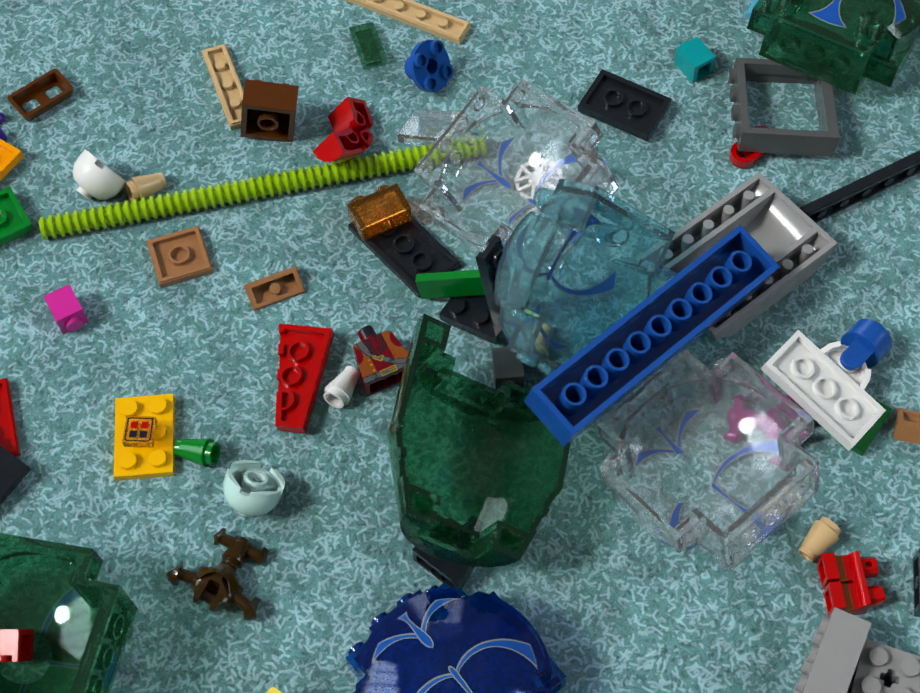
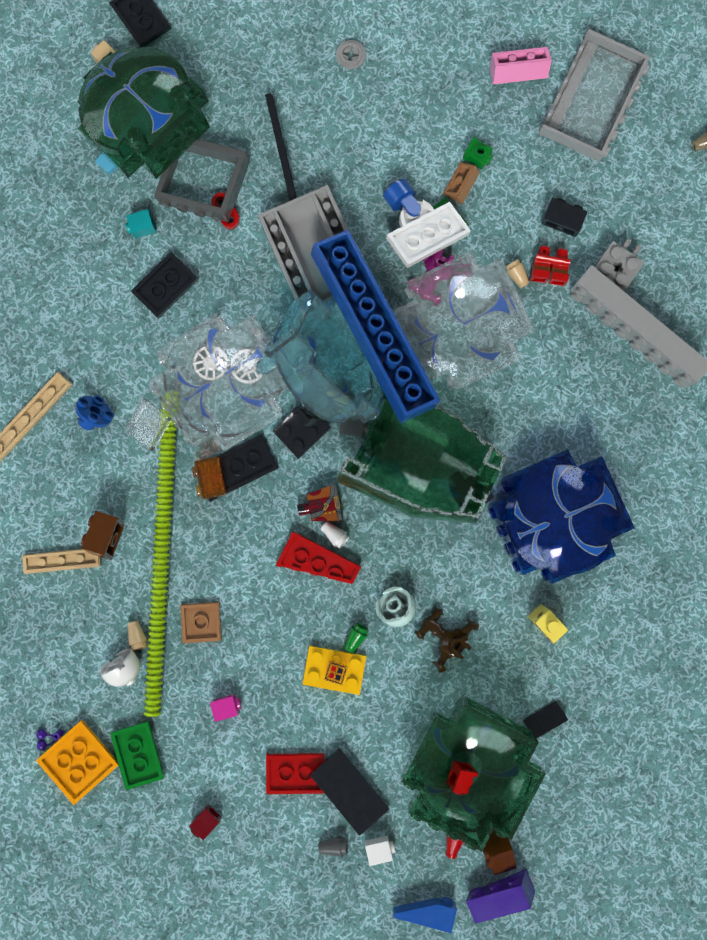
camera: 75 degrees left, 25 degrees up
(36, 91) = (24, 702): reddish brown piece -> none
(274, 288) = (244, 563): medium nougat slope -> none
(350, 132) = (139, 483): red brick -> none
(368, 45) = (55, 450): clear green tile -> none
(449, 284) = (285, 440): green tile -> none

